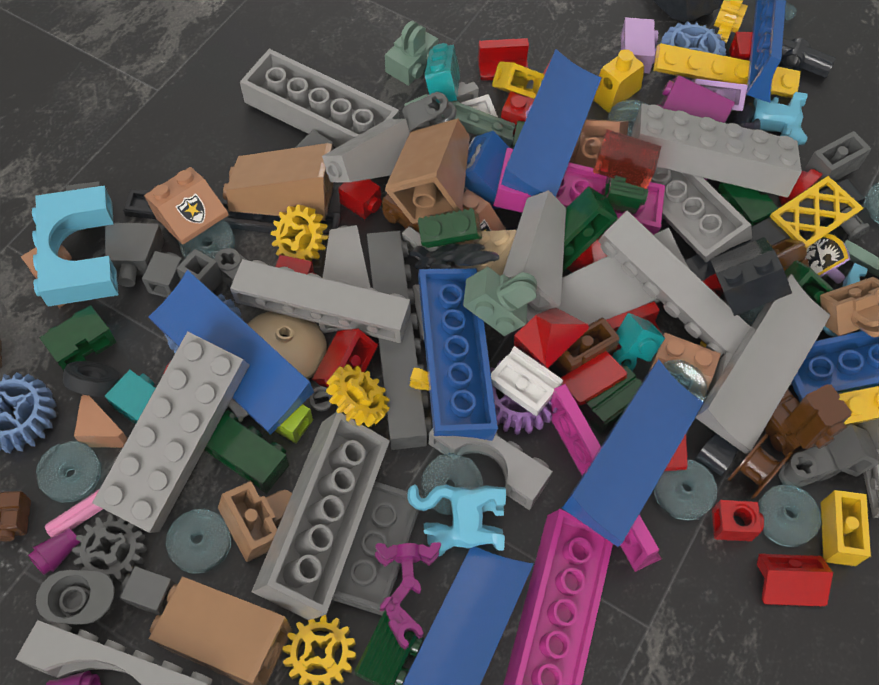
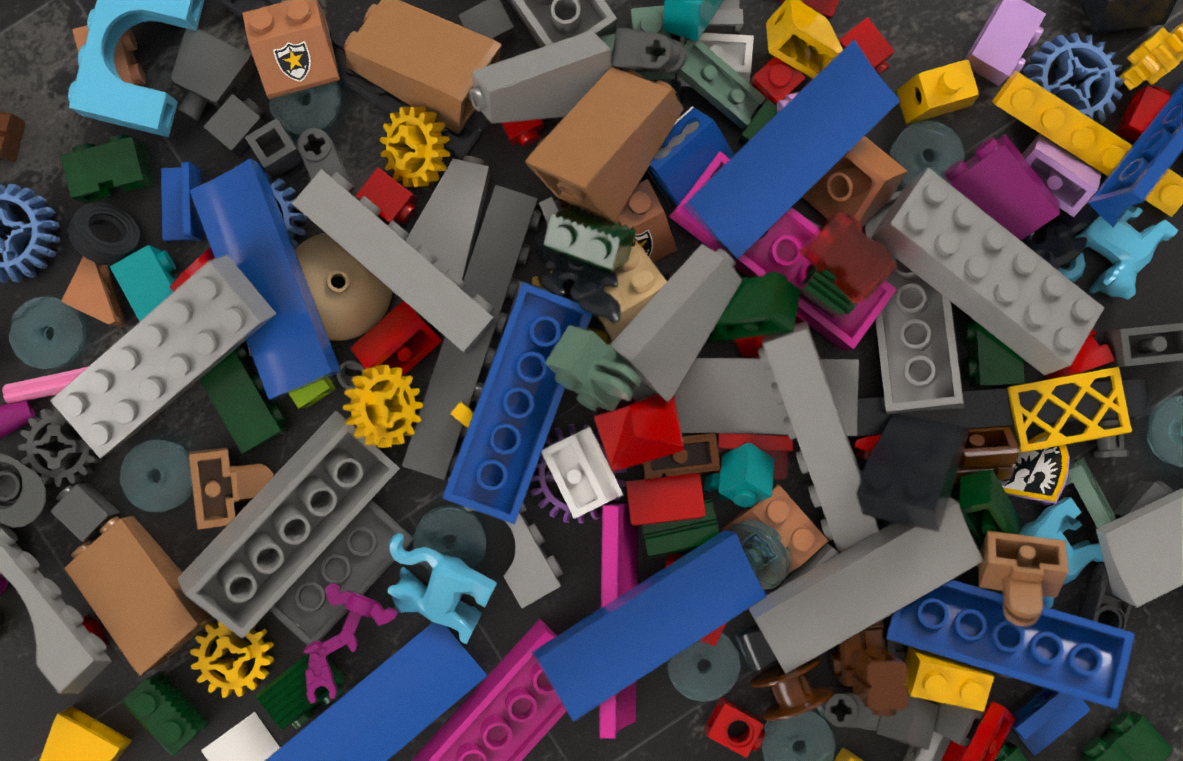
camera: 25 degrees right, 25 degrees up
(143, 342) = (179, 212): none -> blue panel

